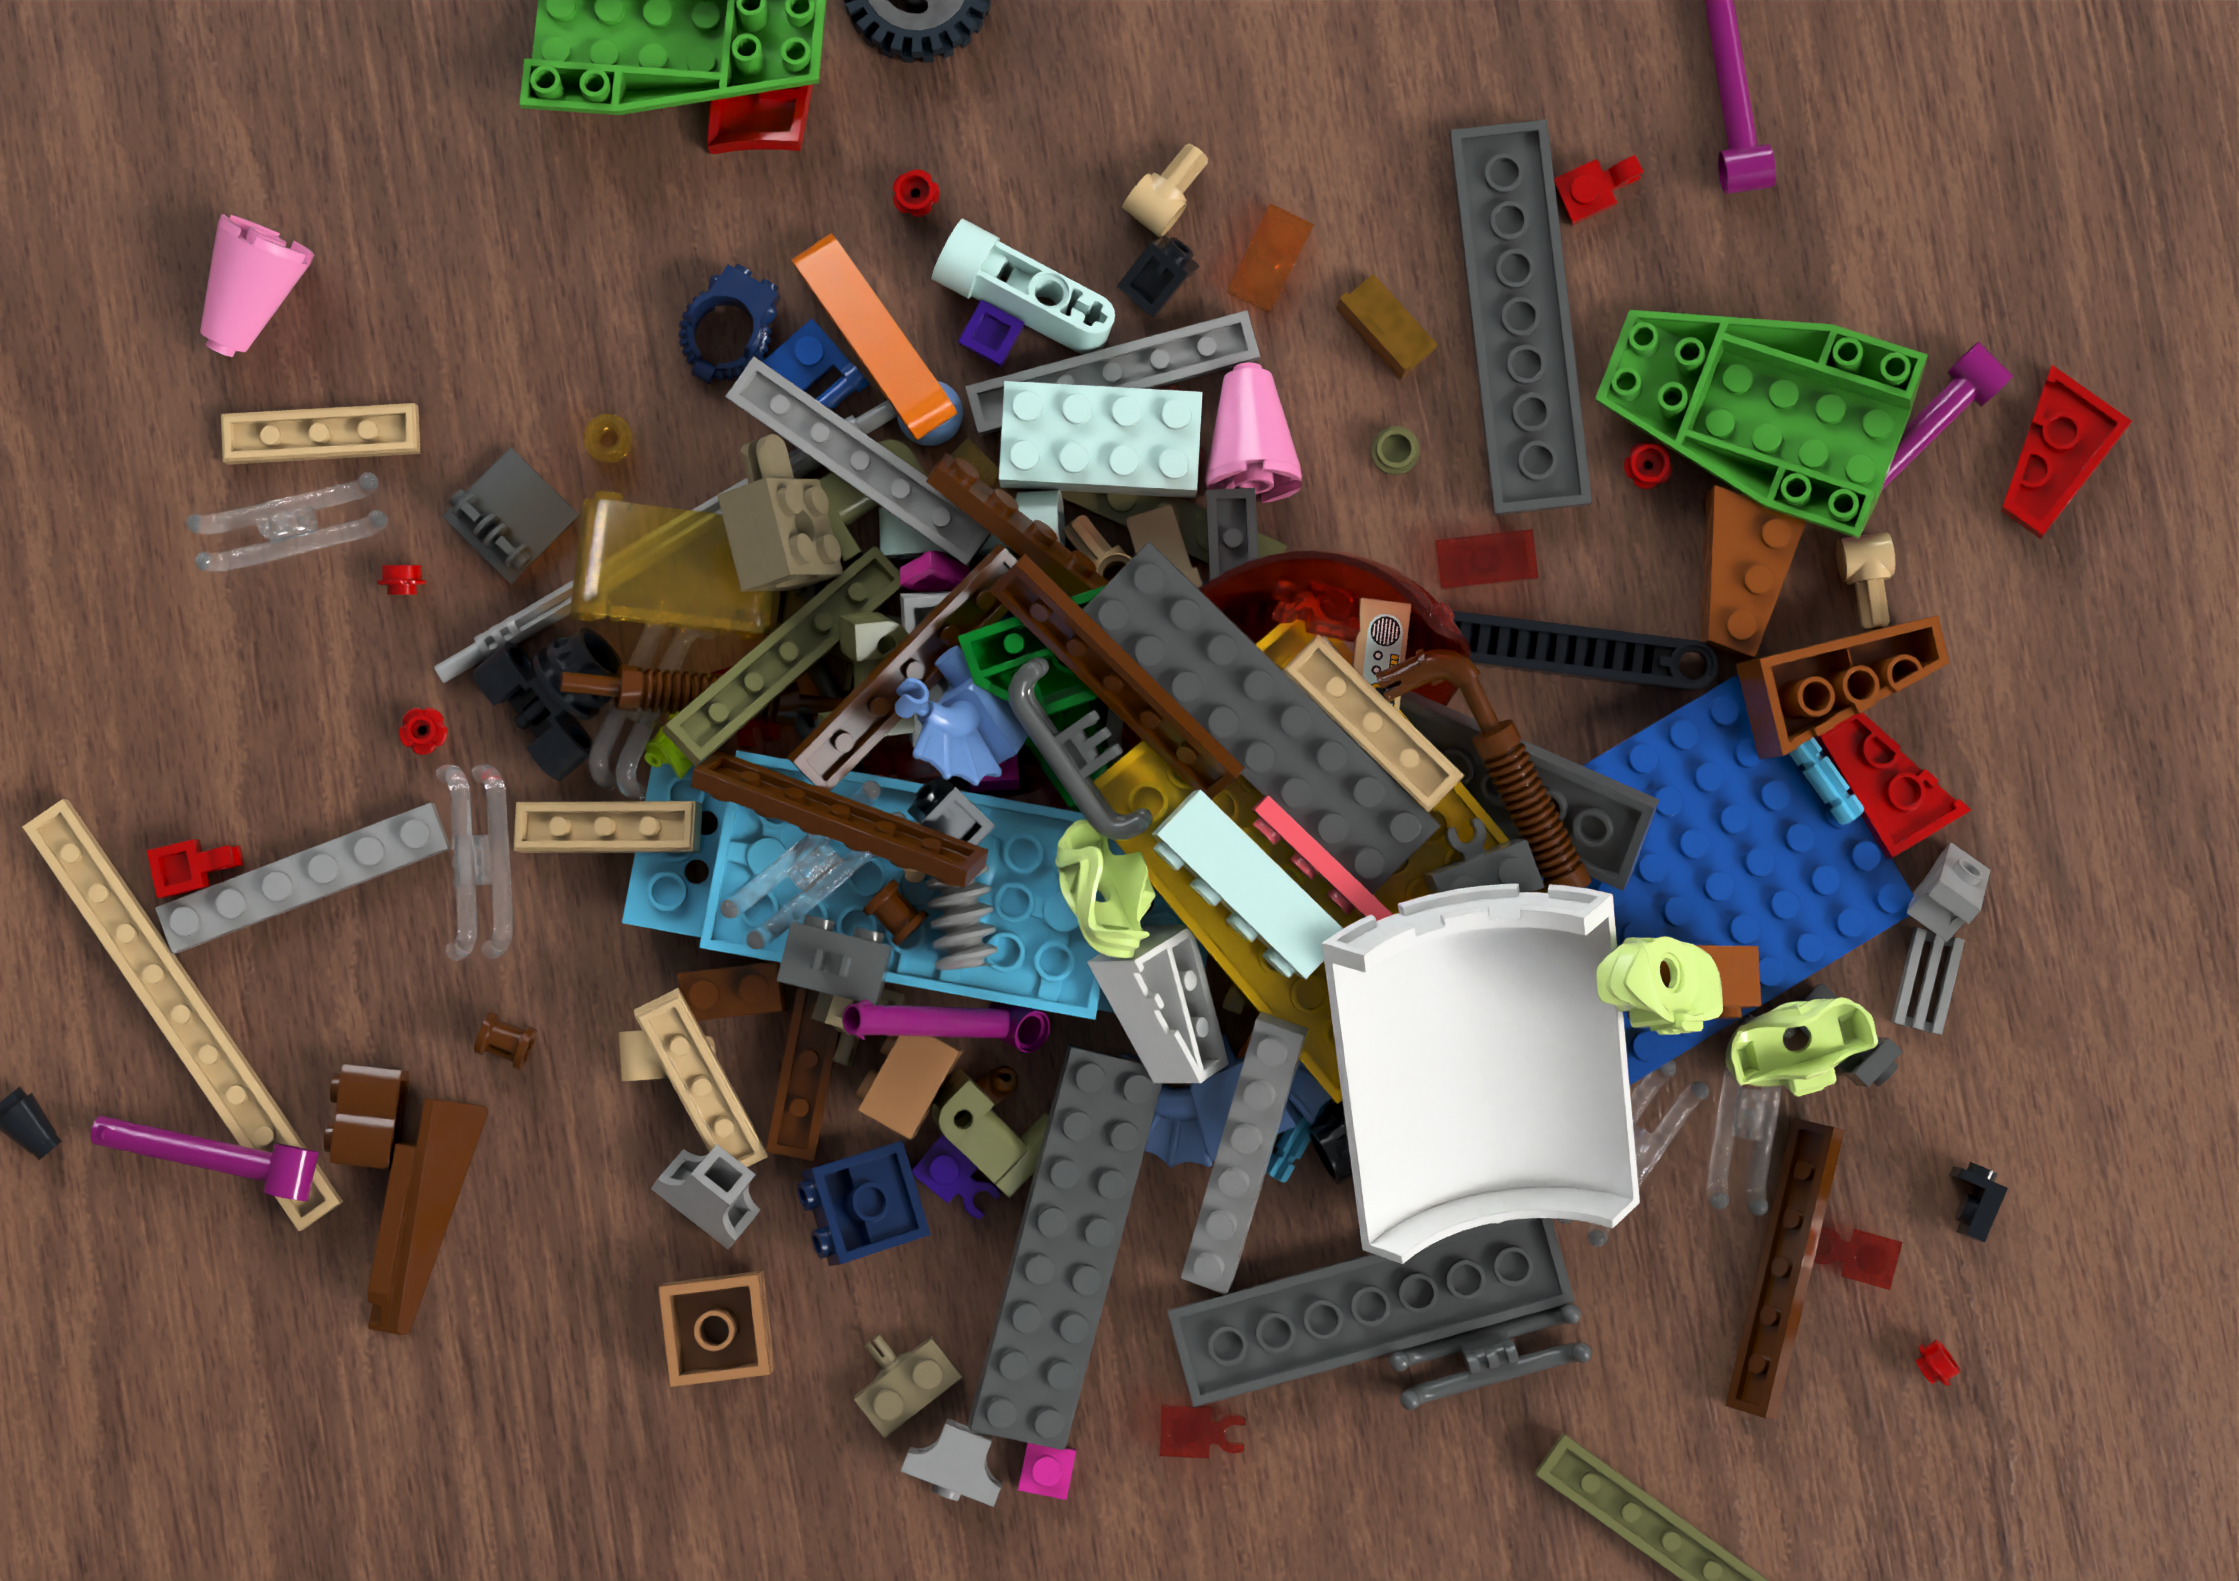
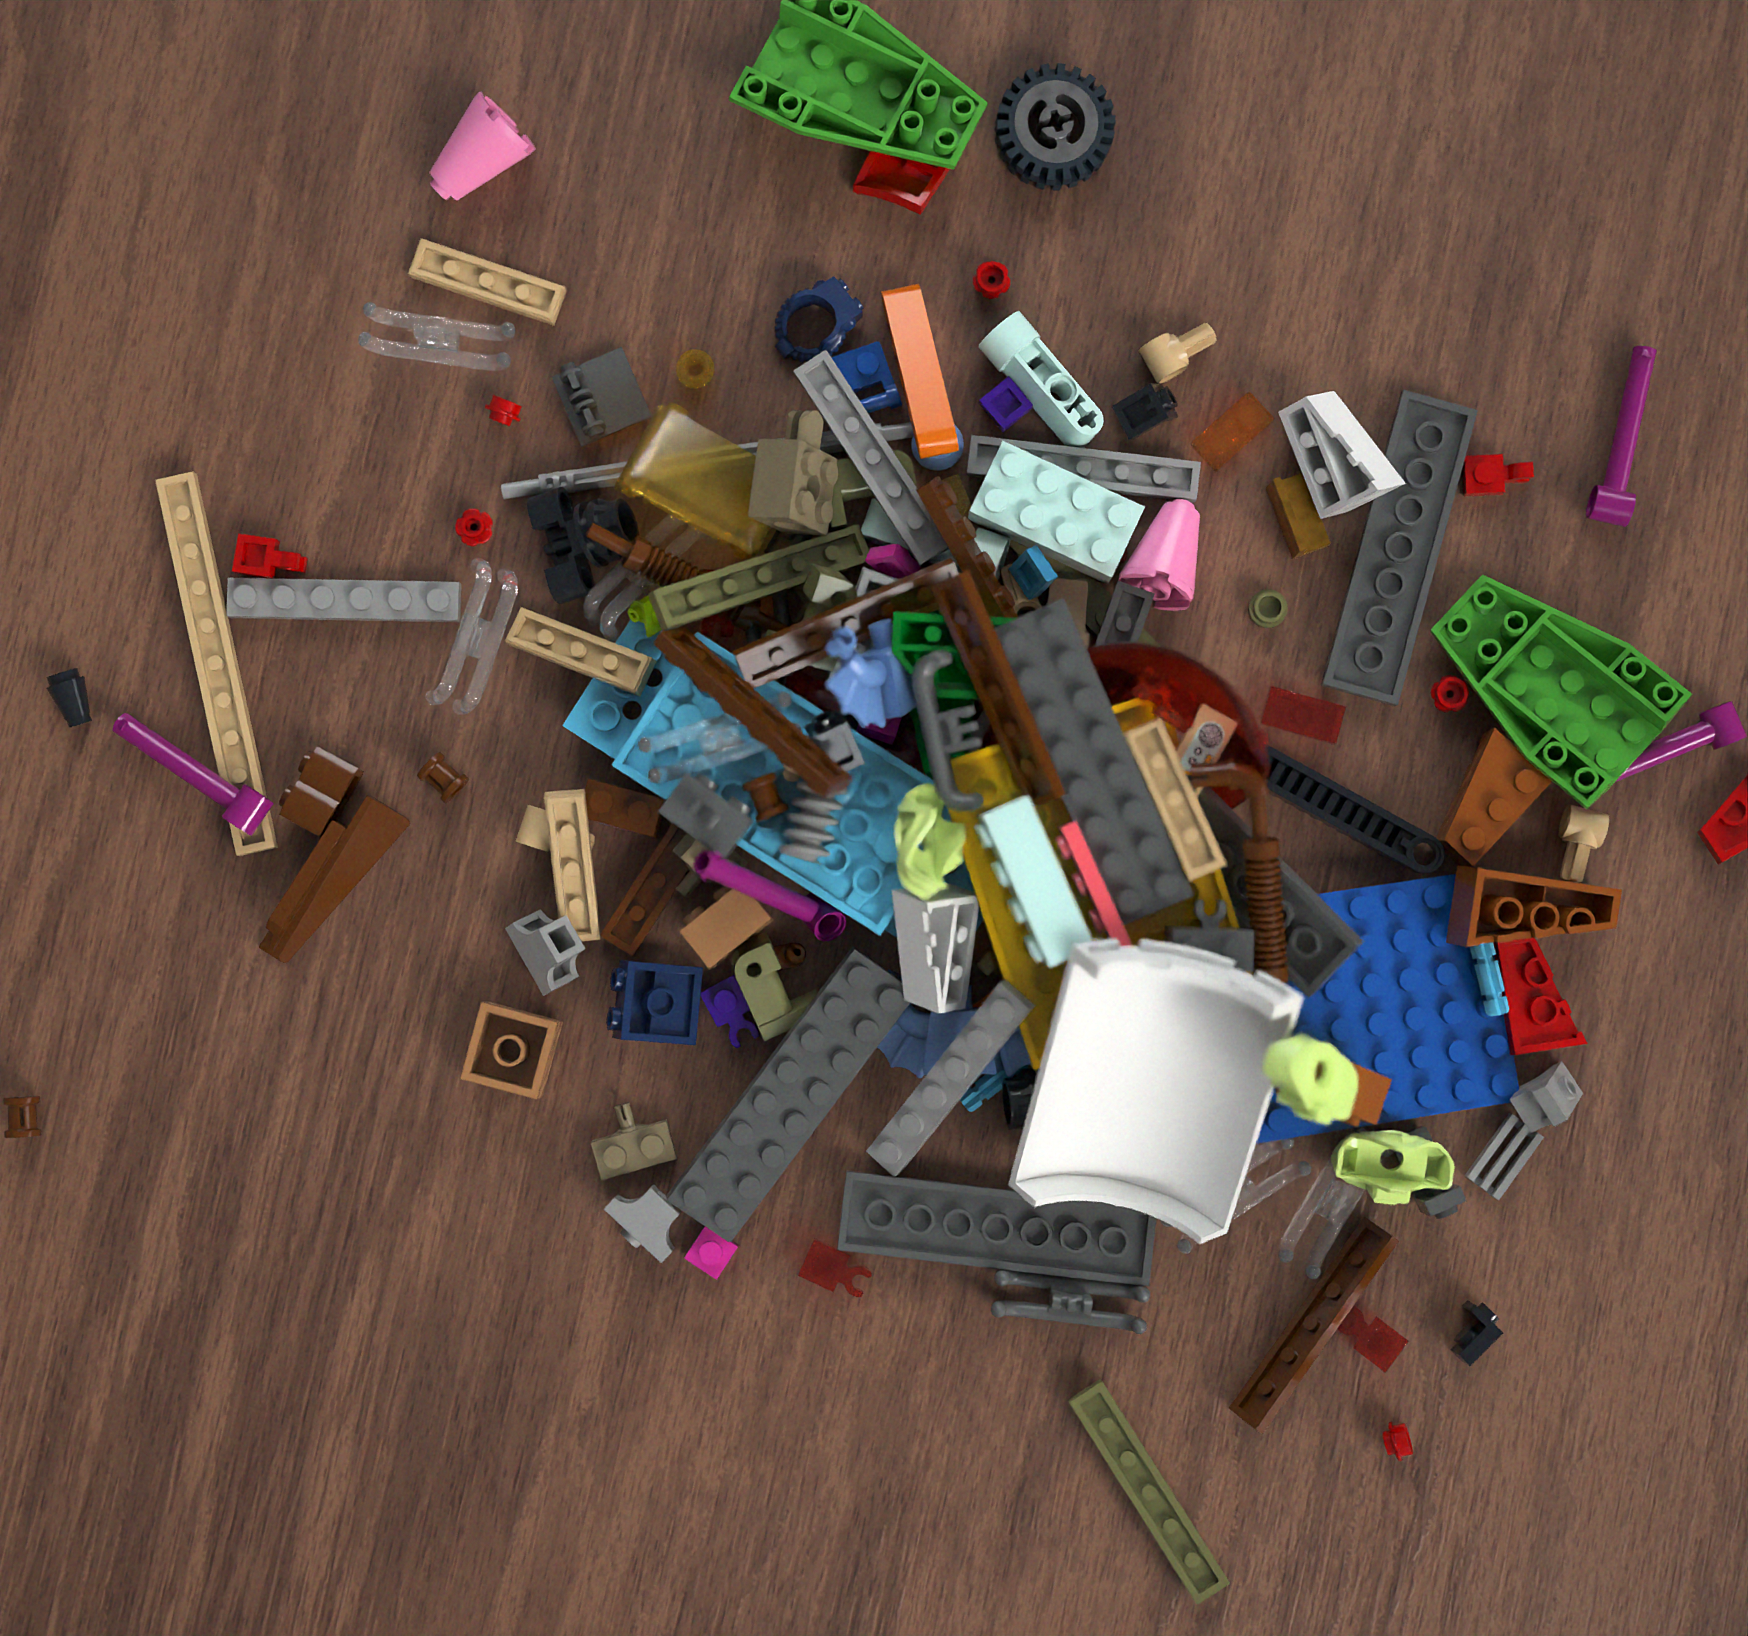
camera: 20 degrees right, 0 degrees up
(1102, 520) = (1033, 572): none -> dark azure plate
(1402, 239) = (1336, 455): none -> white wedge

